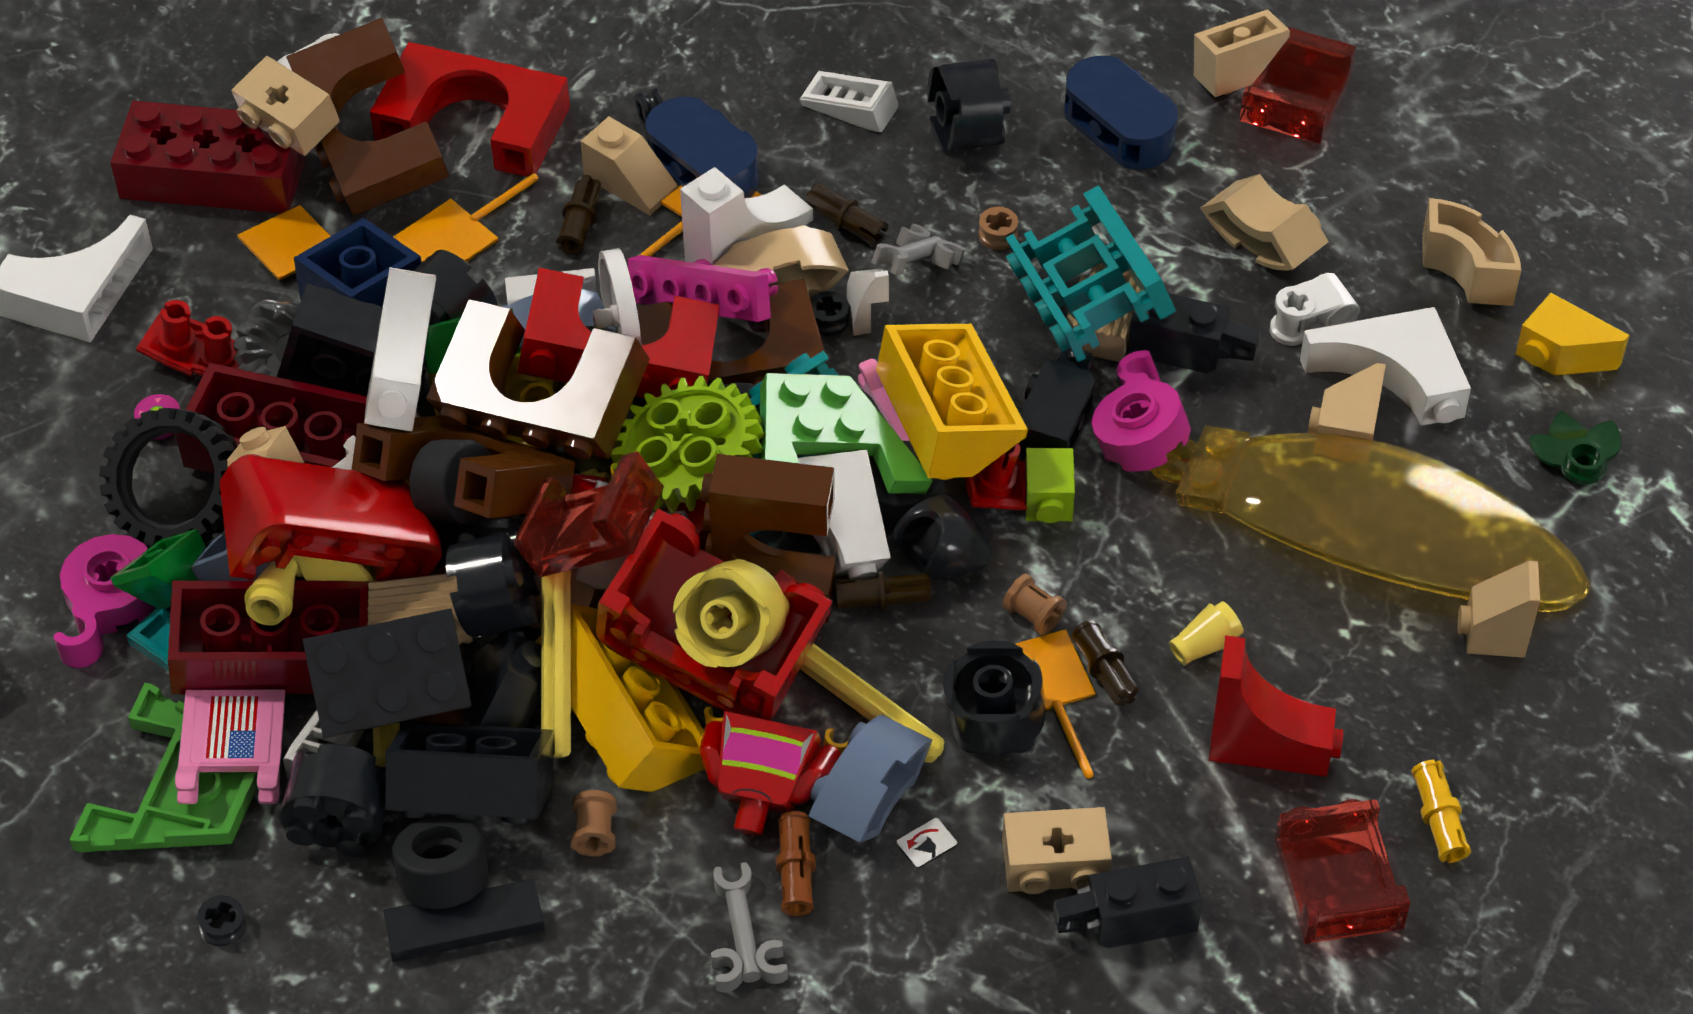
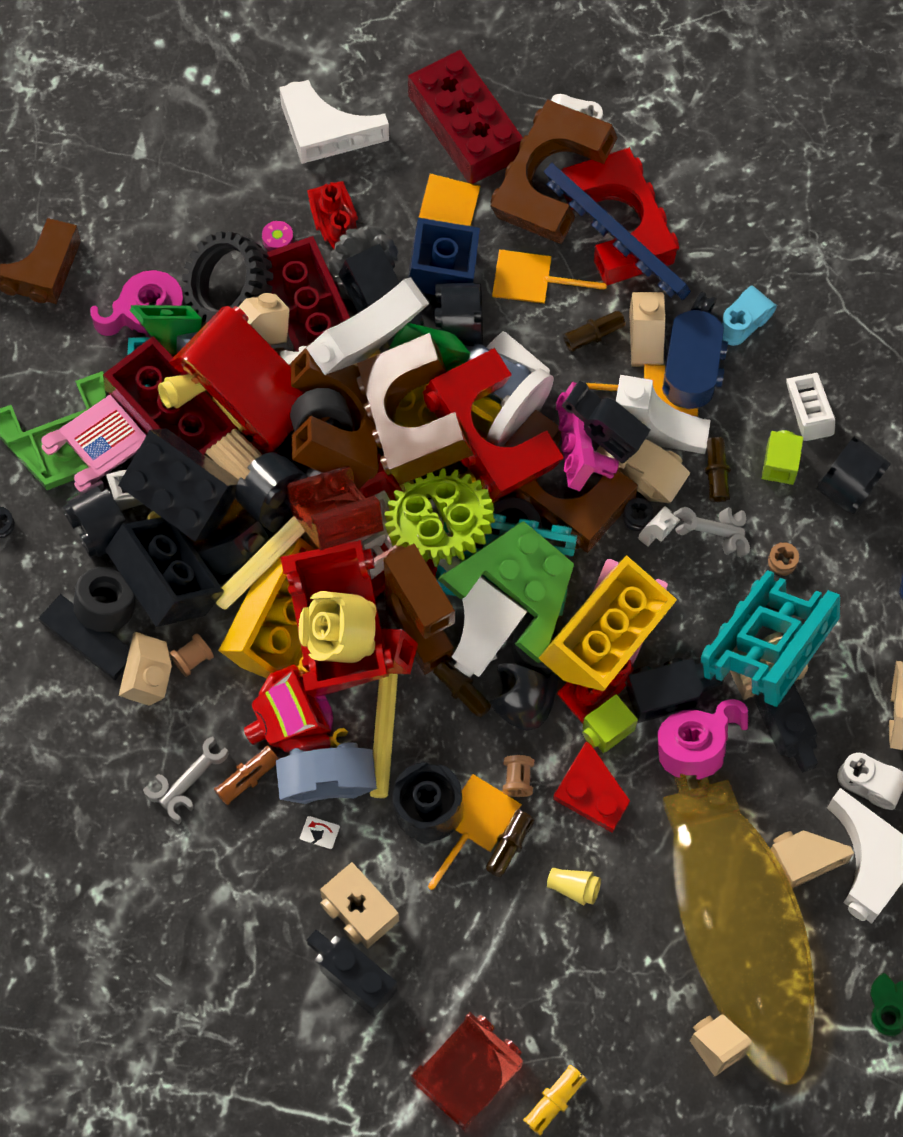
camera: 50 degrees right, 15 degrees up
(285, 106) = (508, 128): tan brick -> none
(487, 104) = (625, 241): none -> dark blue plate
(575, 878) = (146, 670): none -> tan slope
(697, 74) = (746, 315): none -> medium azure piece
(724, 237) = (607, 422): none -> black piece
(887, 153) = (782, 457): none -> lime brick
(1108, 553) = (592, 790): none -> red wing
(1266, 726) = (529, 962): red arch -> none

